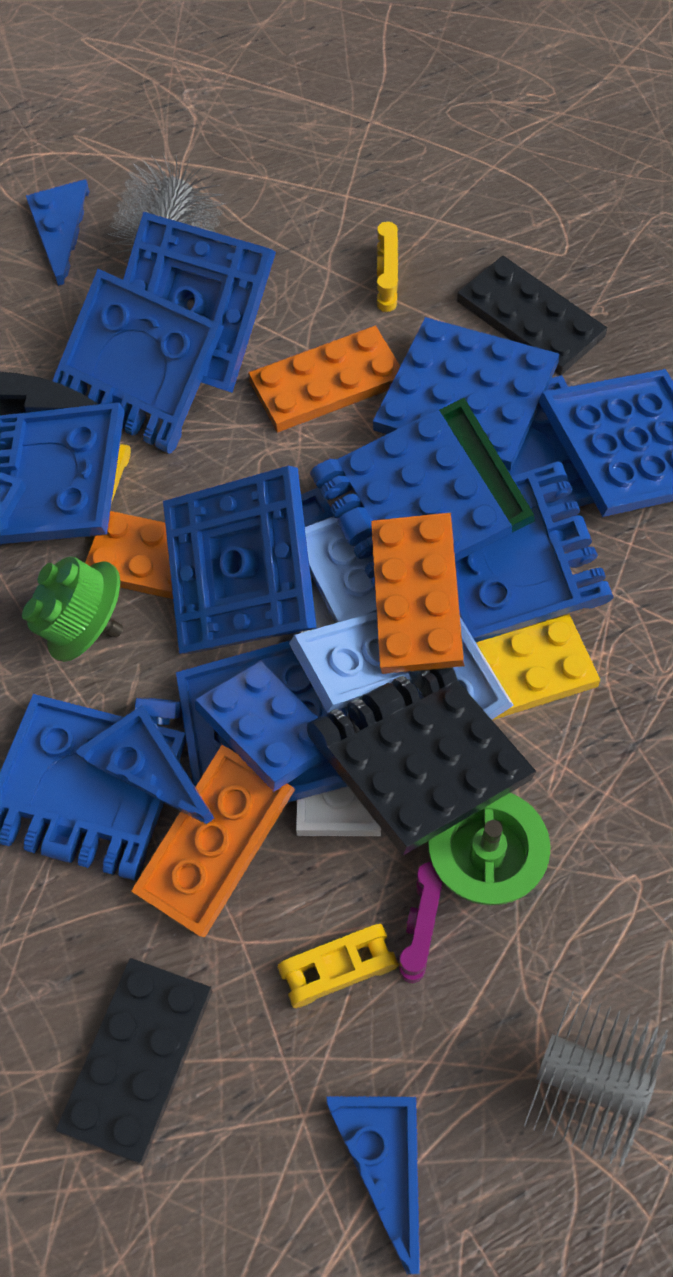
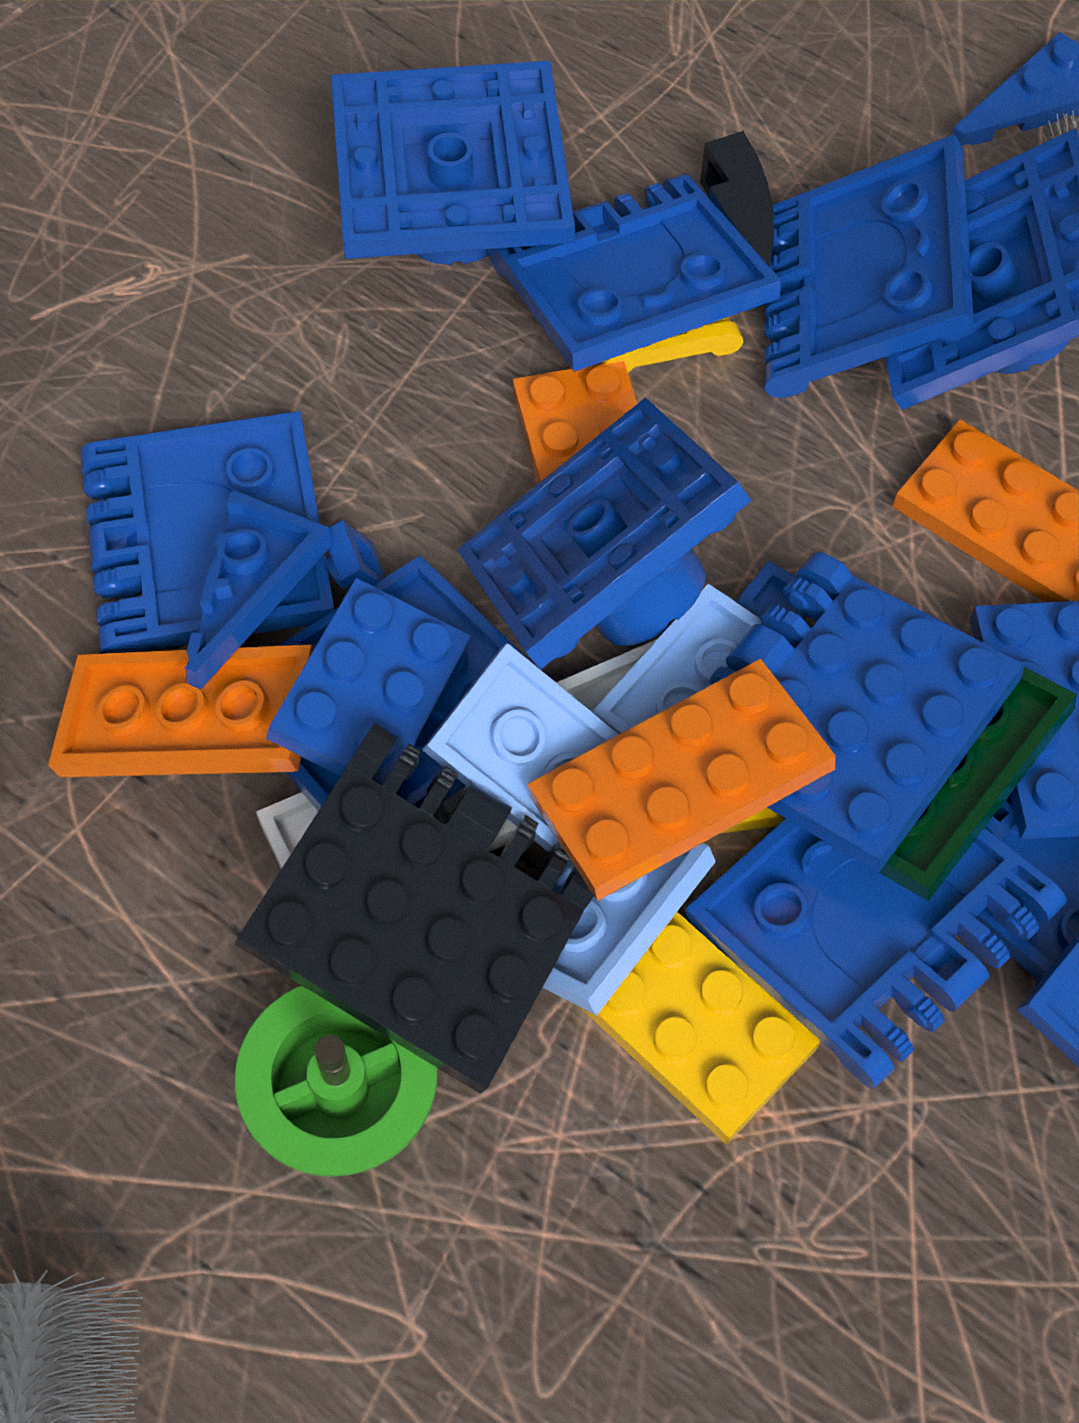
camera: 60 degrees right, 0 degrees up
(73, 606) = (437, 382): bright green piece -> none
(337, 965) = (86, 961): yellow plate -> none
(421, 924) = (184, 1047): magenta plate -> none

